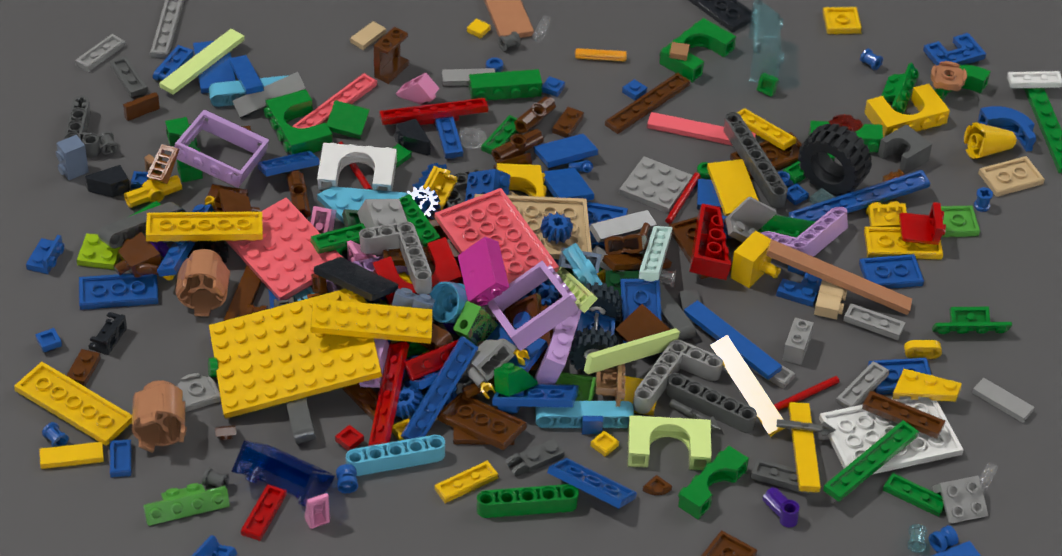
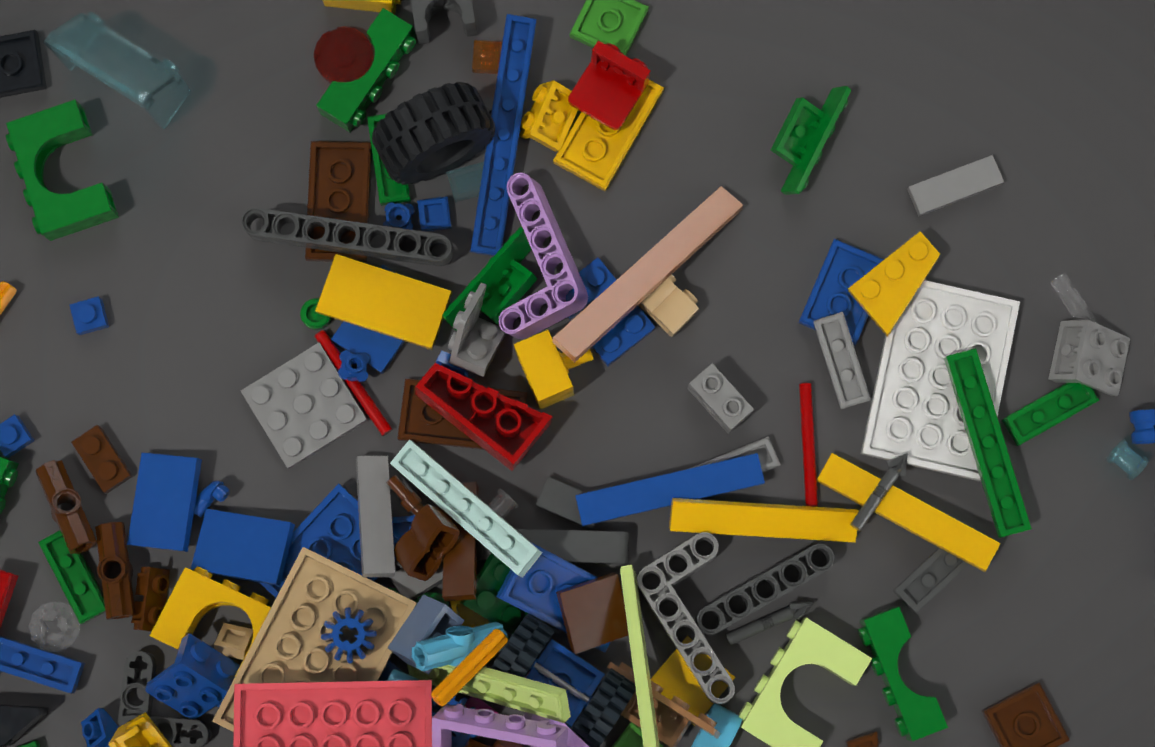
camera: 55 degrees left, 35 degrees up
(575, 272) = (469, 667): none -> light orange axle
(647, 103) = (128, 313): reddish brown tile -> none
(679, 51) = (62, 209): medium nougat tile -> none
(688, 128) = (221, 280): coral tile -> none
(691, 190) = (348, 373): none -> blue plate
(767, 84) = (196, 112): green tile -> none
(767, 130) = (284, 178): yellow tile -> none
(786, 509) = (986, 606): dark purple piece -> none
(874, 321) = (735, 266): light grey plate -> none
(892, 271) = (653, 179): blue tile -> none
(897, 411) = (932, 346): reddish brown plate -> none
(923, 349) = (820, 234): yellow beam -> none

